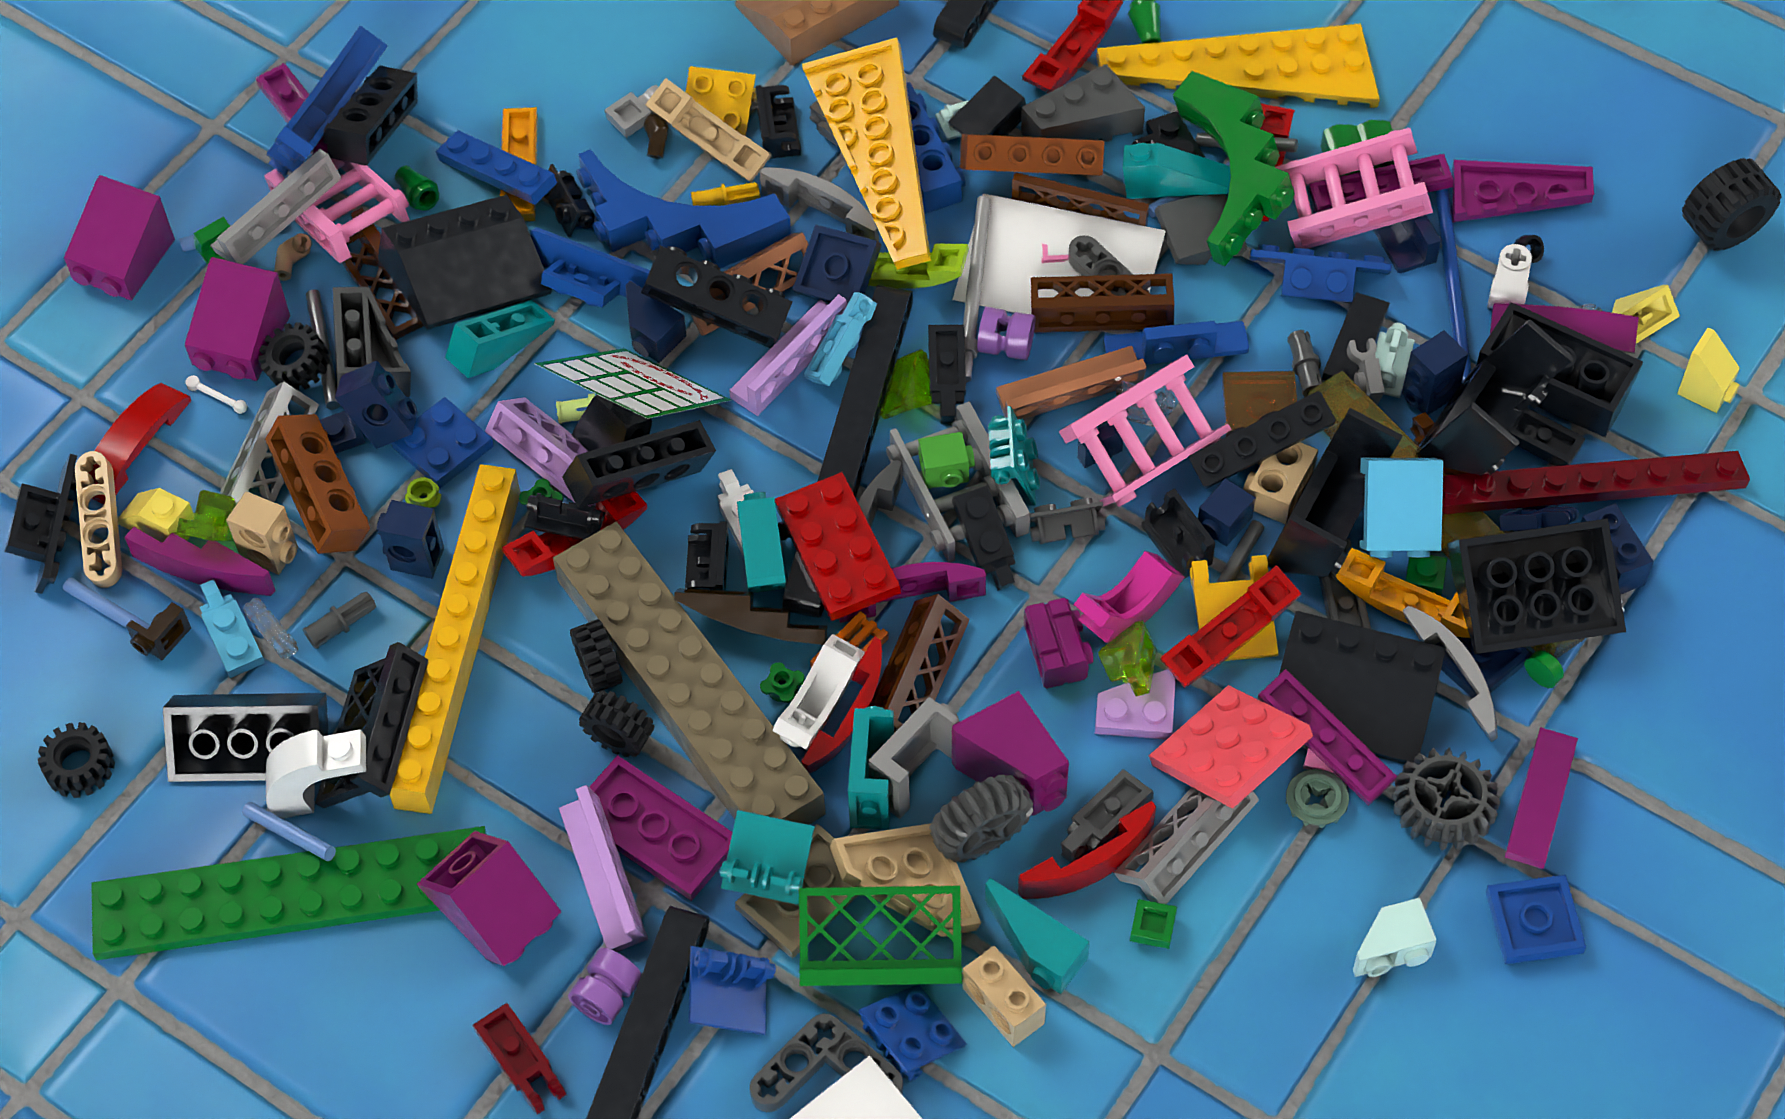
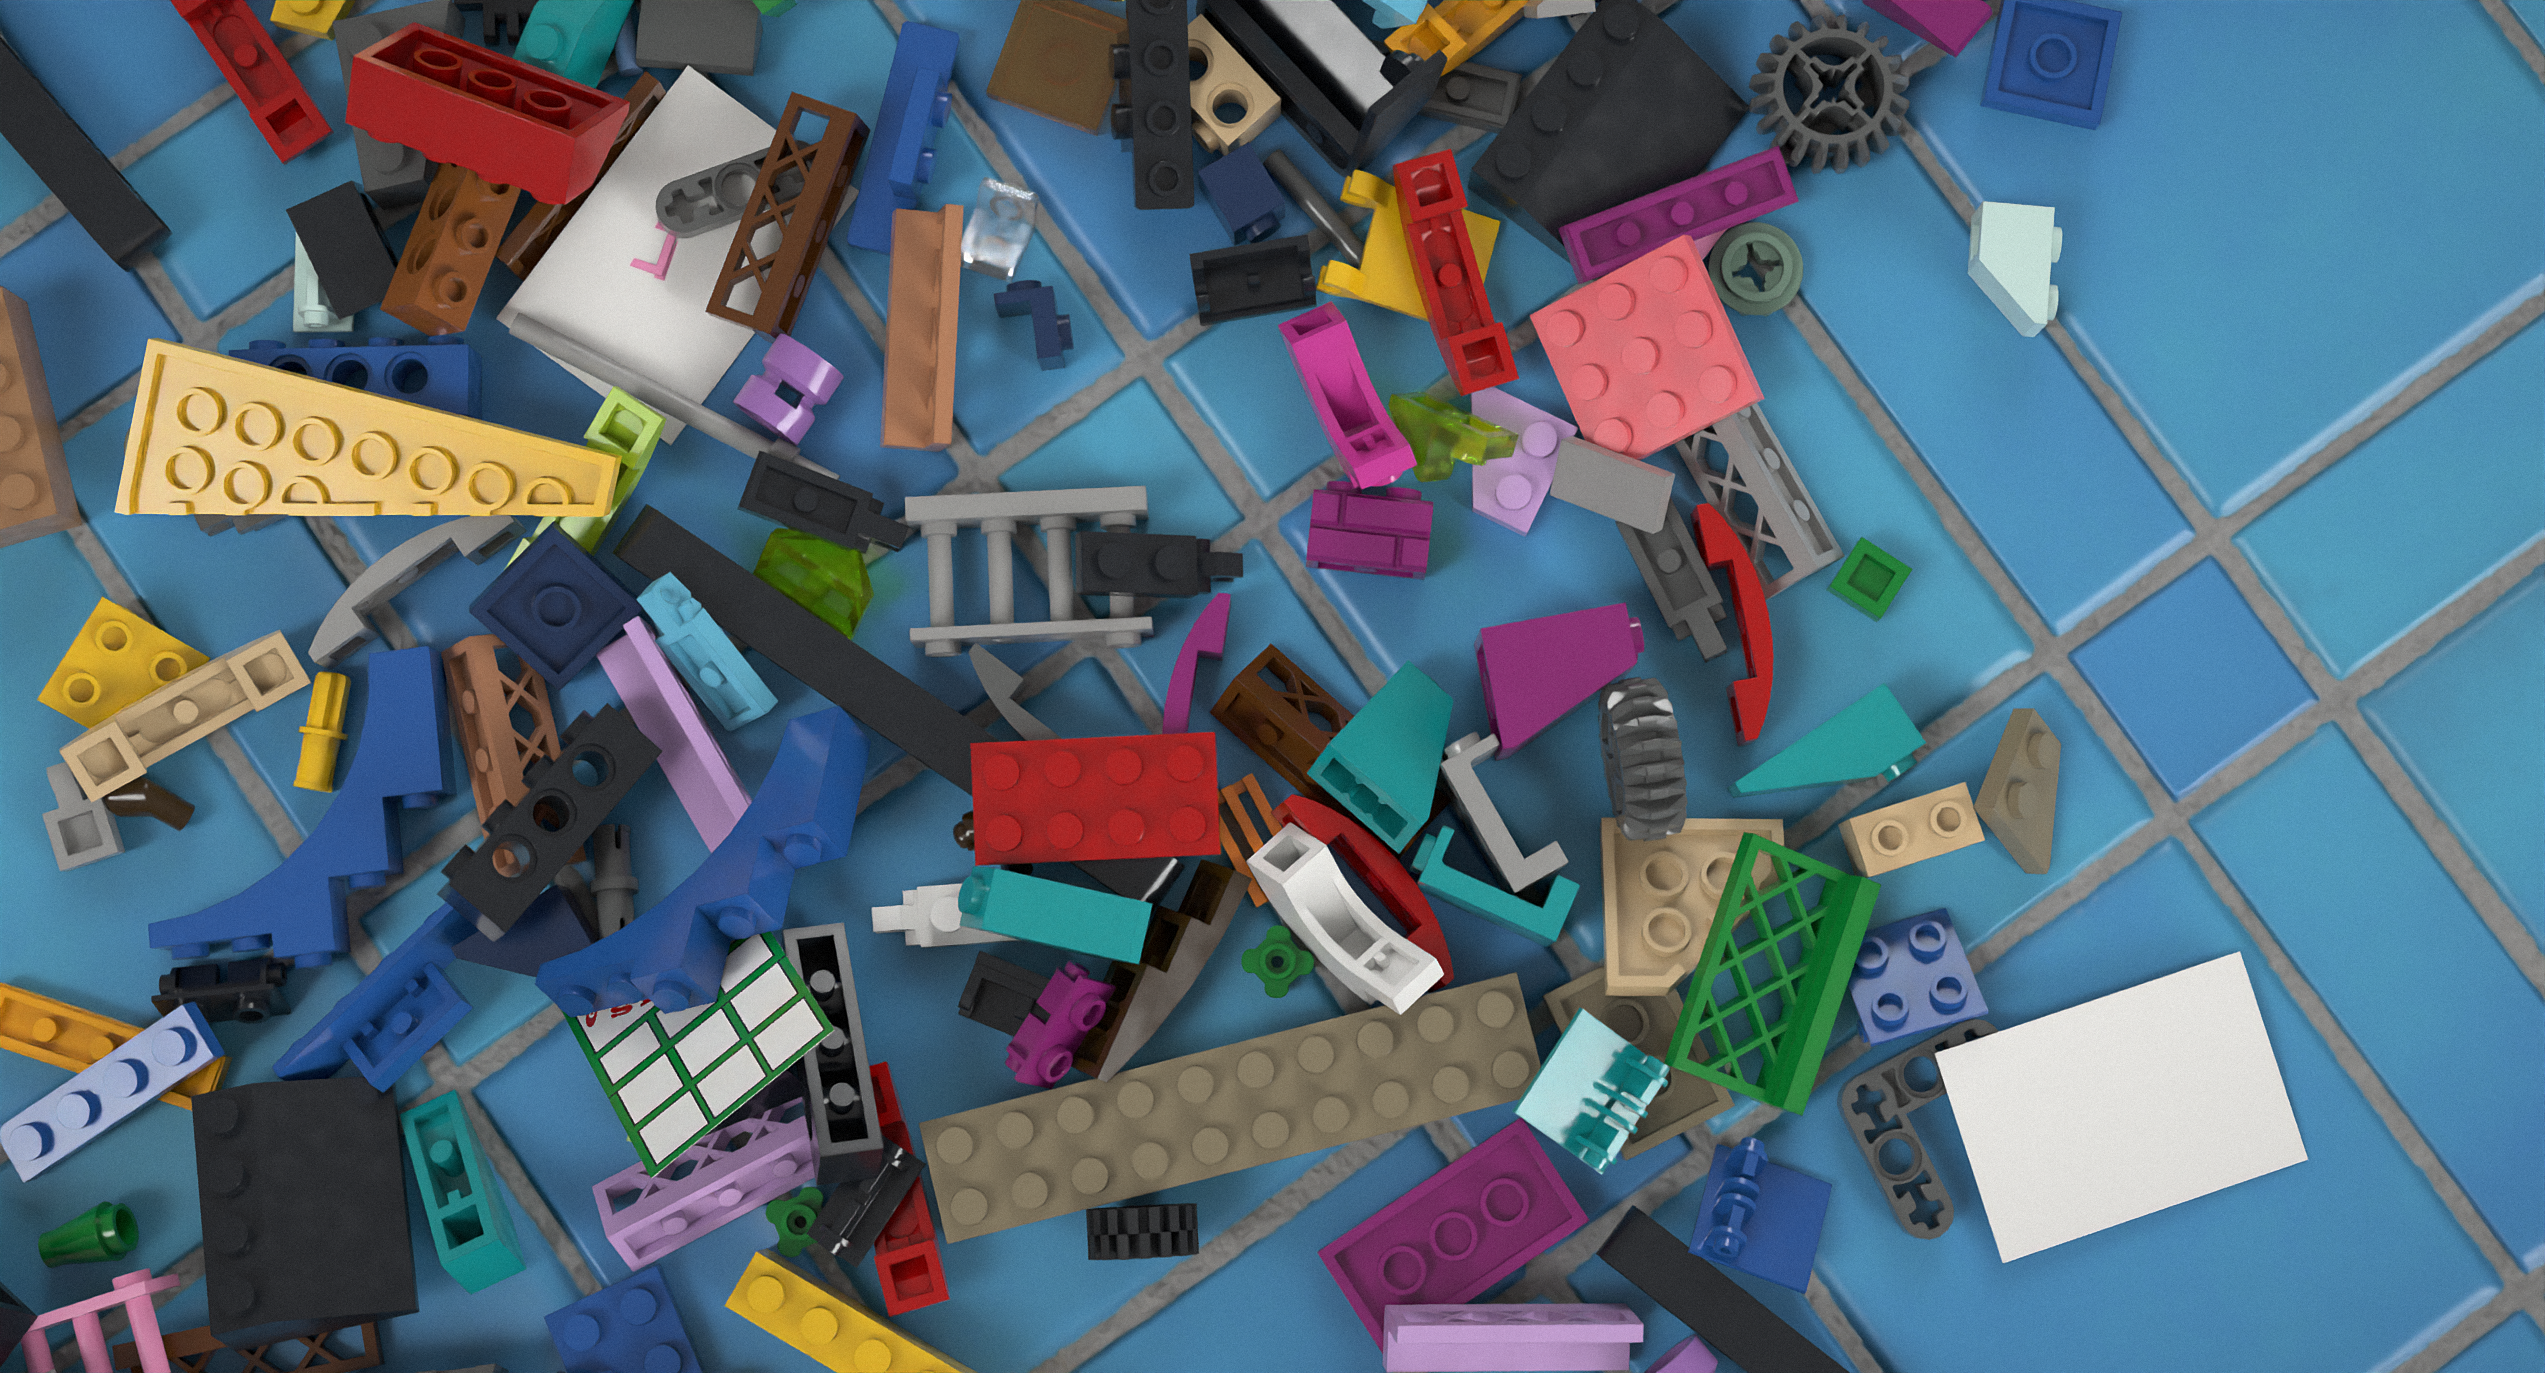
camera: 70 degrees left, 25 degrees up
(616, 723) = (1273, 1238): black tyre -> none
(693, 349) = (613, 878): none -> dark grey pin
(697, 571) = (1045, 1050): none -> magenta hinge
(713, 387) = (739, 891): none -> blue arch
(777, 121) = (204, 593): black hinge -> none
(925, 671) = (1390, 756): none -> teal slope
(945, 460) = (1008, 576): bright green brick -> none
(1013, 453) = (1014, 446): teal hinge -> none
(1058, 1052) = (2022, 790): none -> dark tan wing
(1079, 516) = (1159, 410): dark grey hinge -> none
(1086, 130) = (484, 112): none -> red slope
(1115, 414) = (1016, 271): bright pink fence -> none
(1143, 754) = (1612, 484): none -> light grey tile

